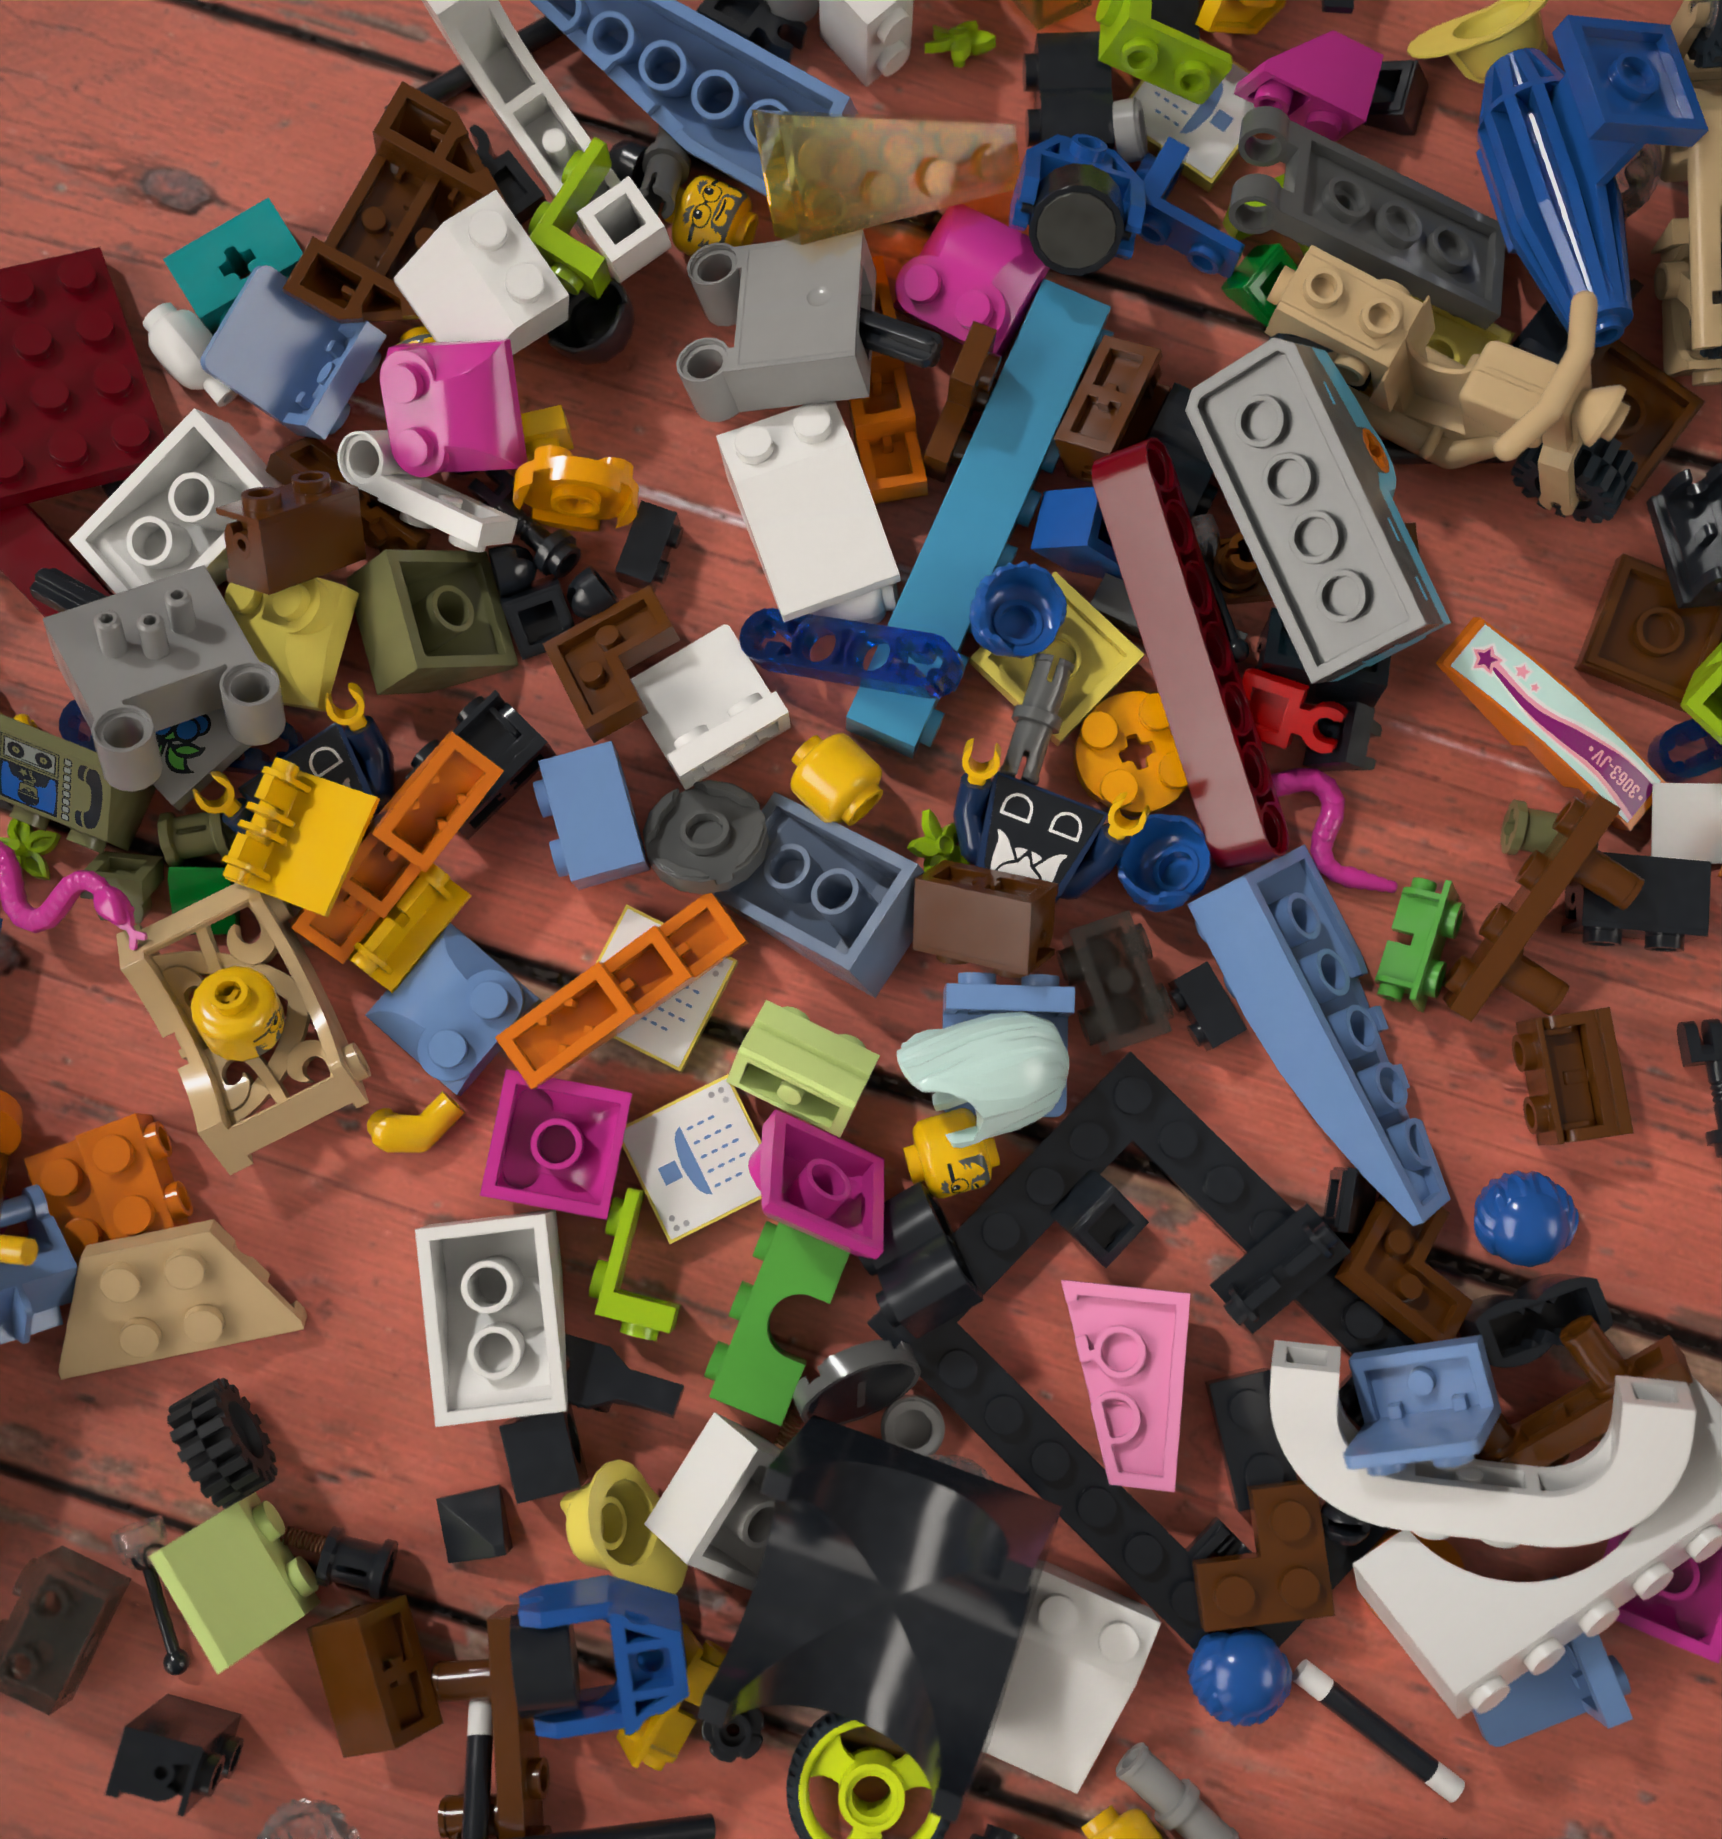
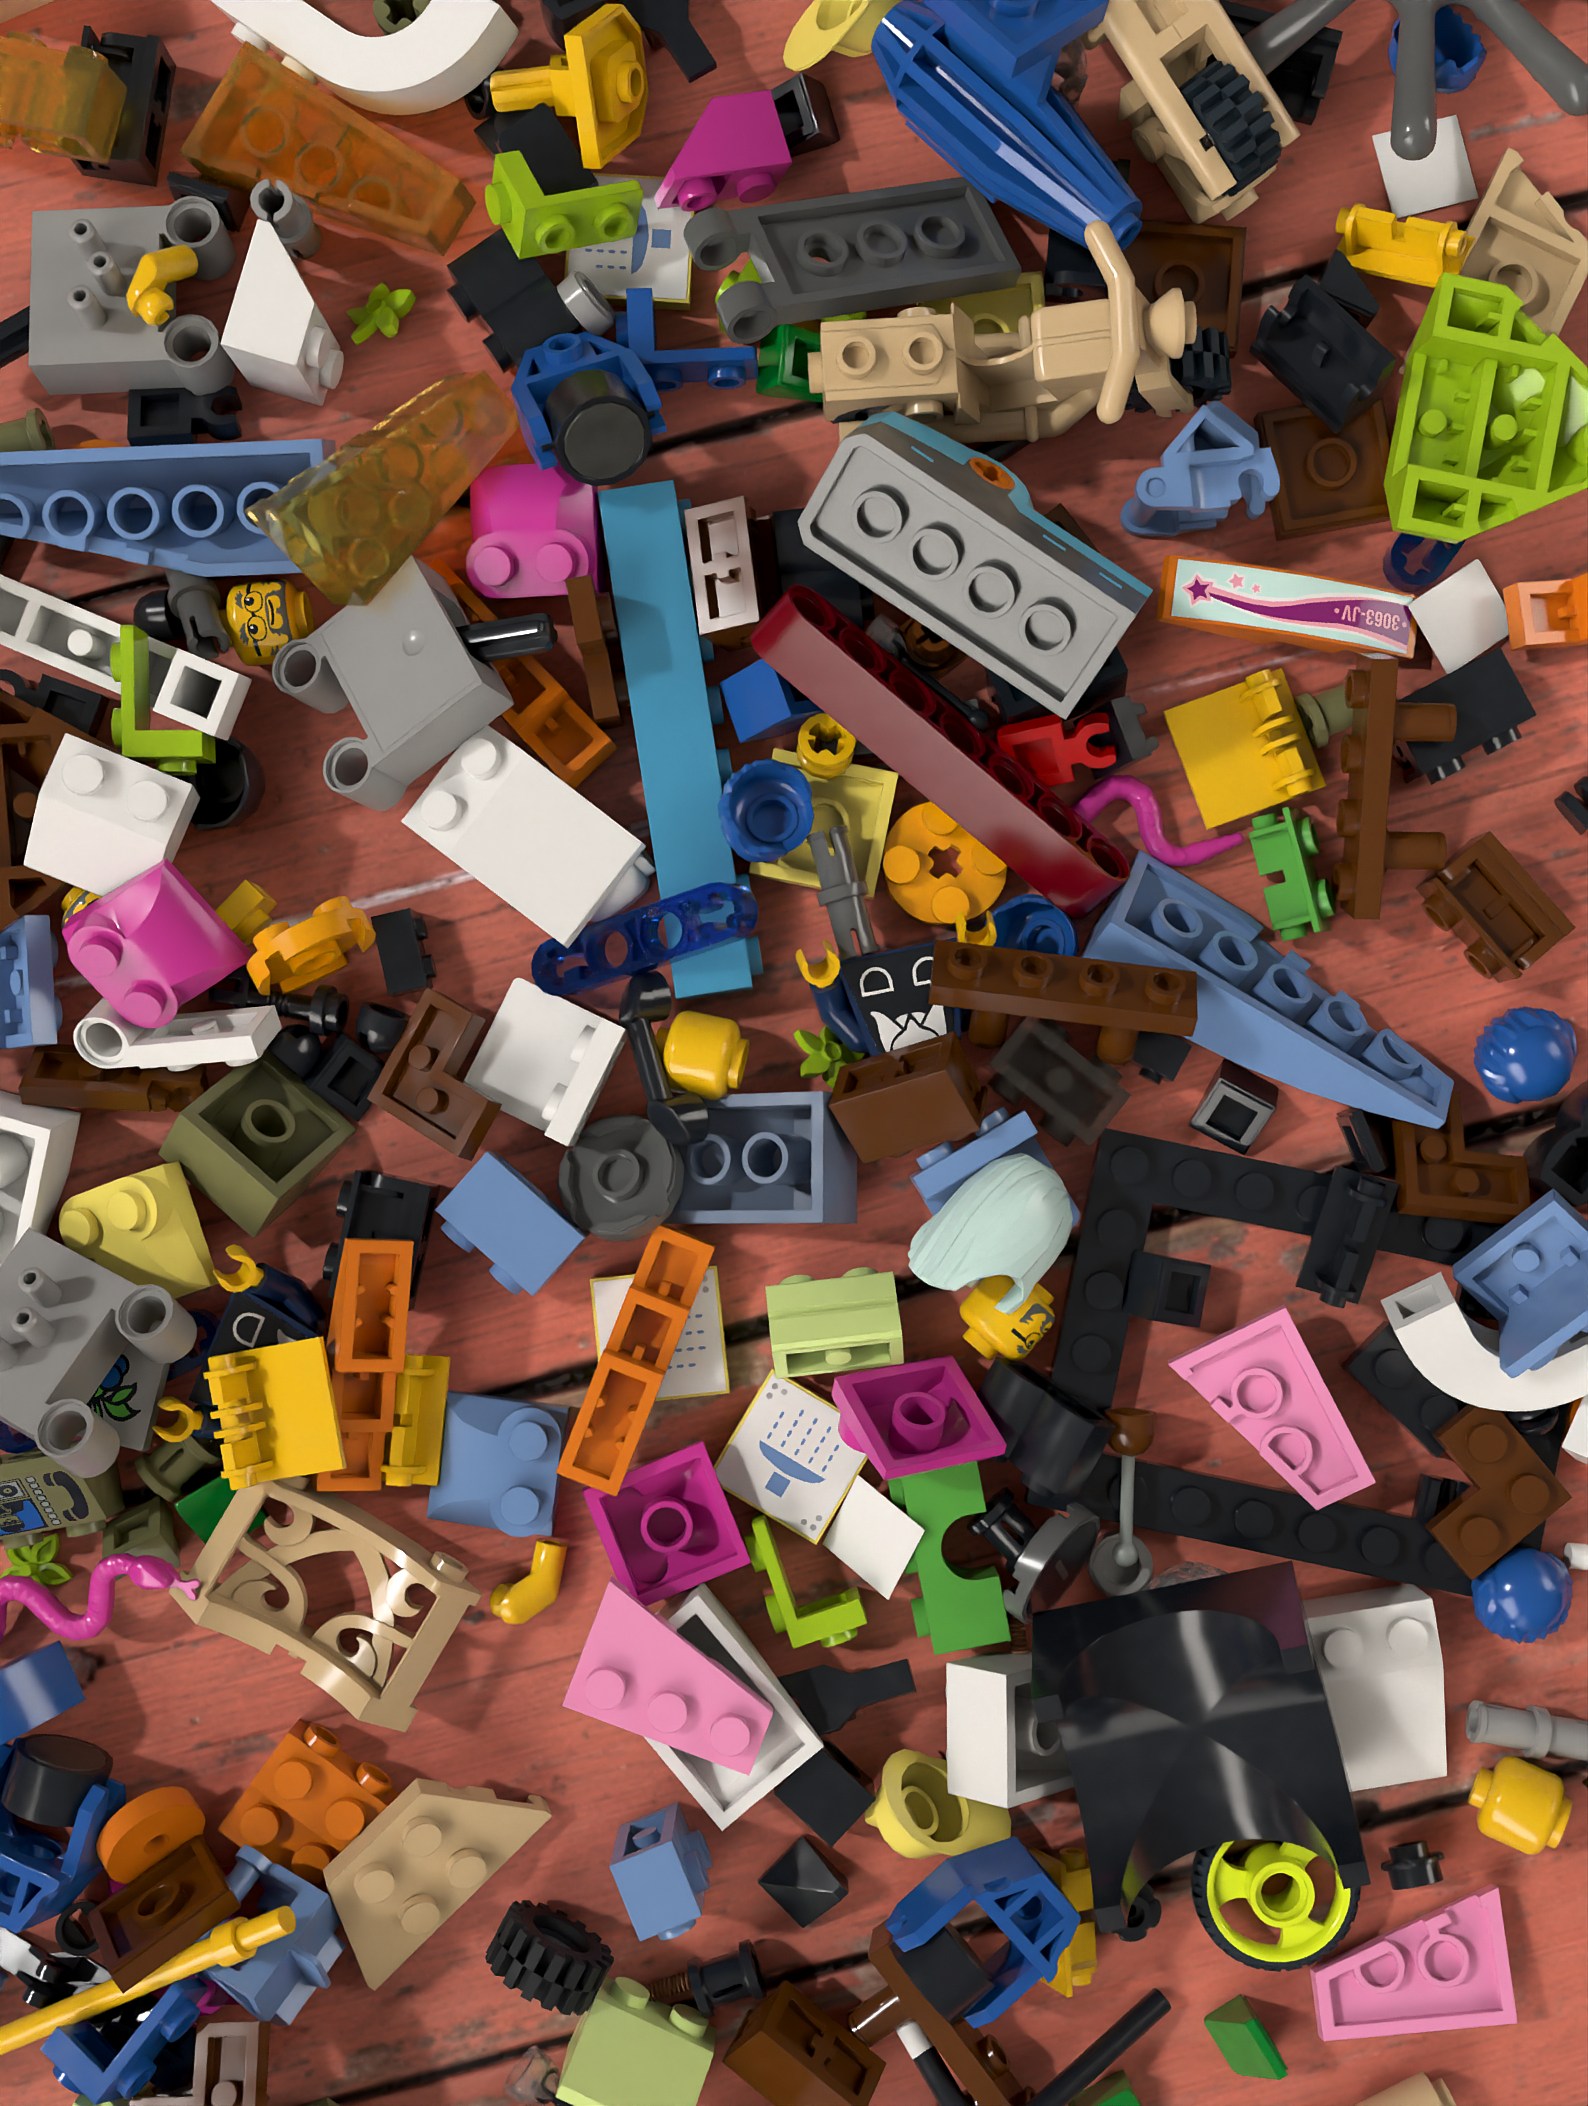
camera: 30 degrees left, 5 degrees up
(238, 1013) = (321, 1594): yellow head -> none
(292, 532) = (88, 1150): reddish brown hinge -> none
(361, 1432) = (661, 1872): none -> medium blue brick
(465, 1270) = (663, 1687): none -> bright pink wing
(721, 1267) = (873, 1537): none -> white sticker
(782, 812) = (676, 1117): none -> black bar
(823, 1322) = (988, 1523): none -> black bush
(989, 1321) = (1130, 1438): none -> hinge
(1088, 605) = (824, 764): none -> yellow bush
(1191, 919) = (1062, 988): none -> reddish brown plate
(1250, 1106) = (1235, 1107): none -> black slope
(1443, 816) = (1244, 748): none -> yellow hinge
(1546, 565) = (1202, 476): none -> medium blue piece

